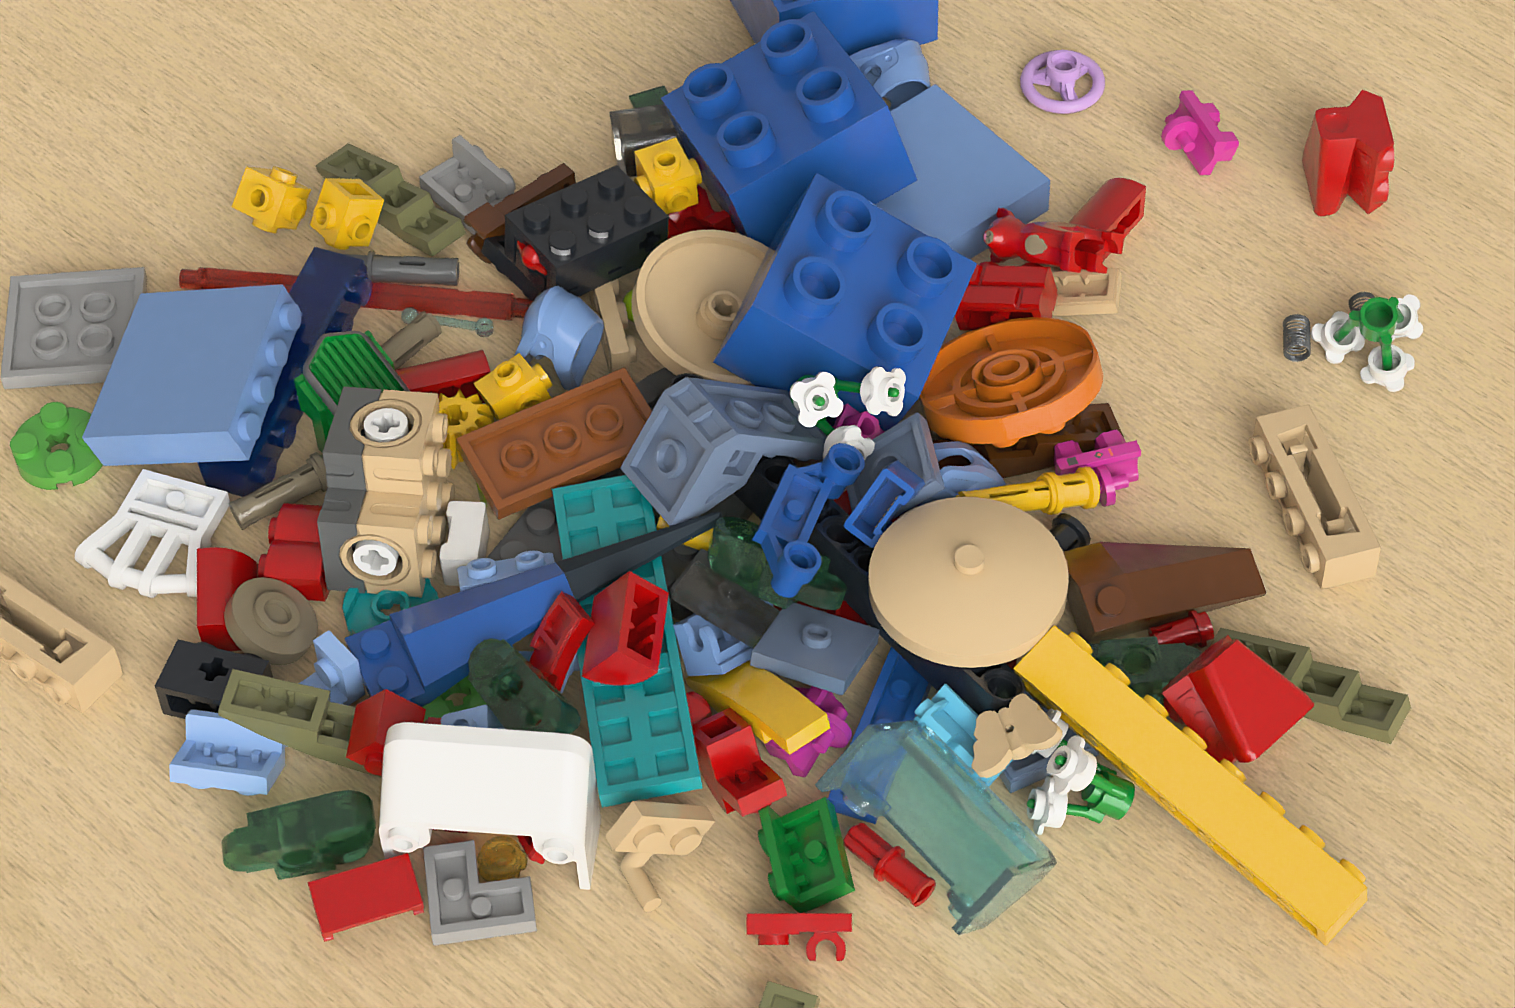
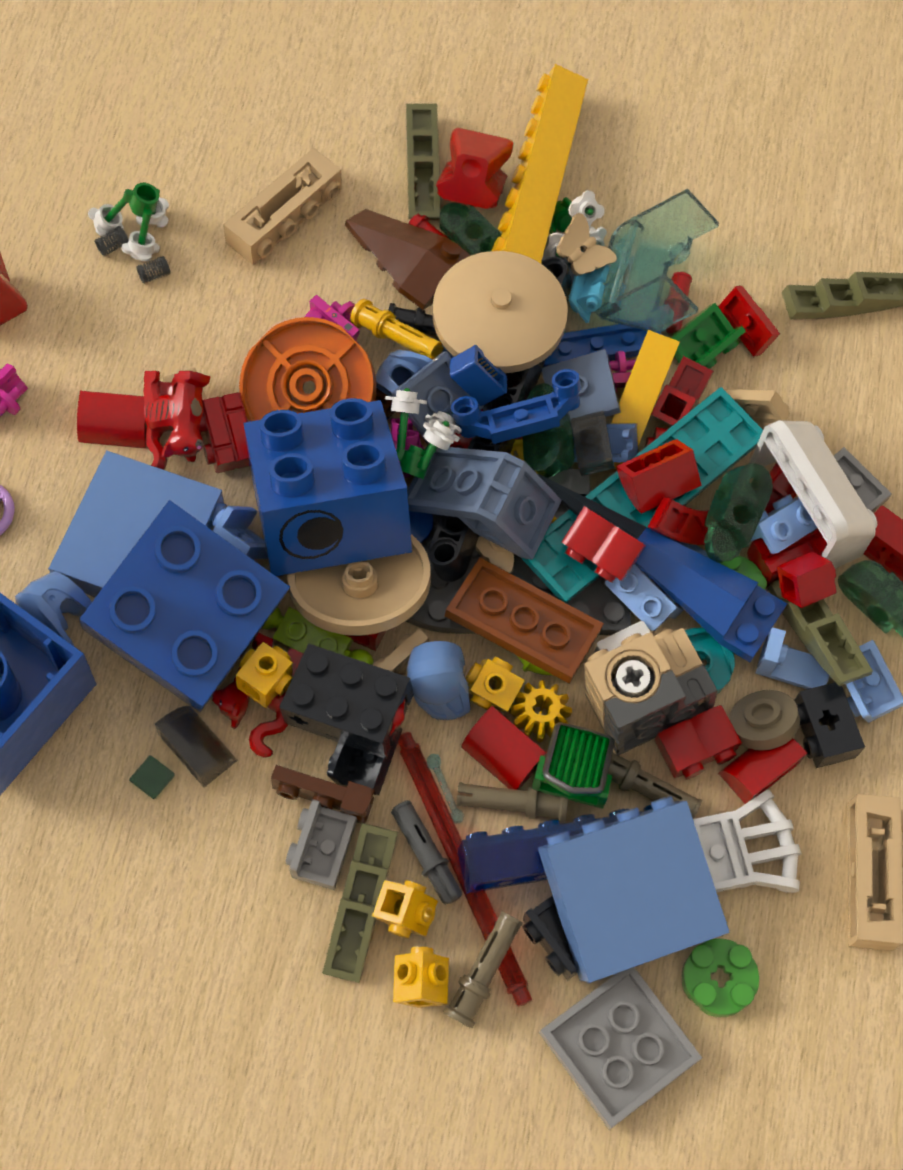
camera: 130 degrees left, 15 degrees up
(229, 238) = (475, 985): none -> dark tan pin
(586, 524) = (603, 545): none -> red brick

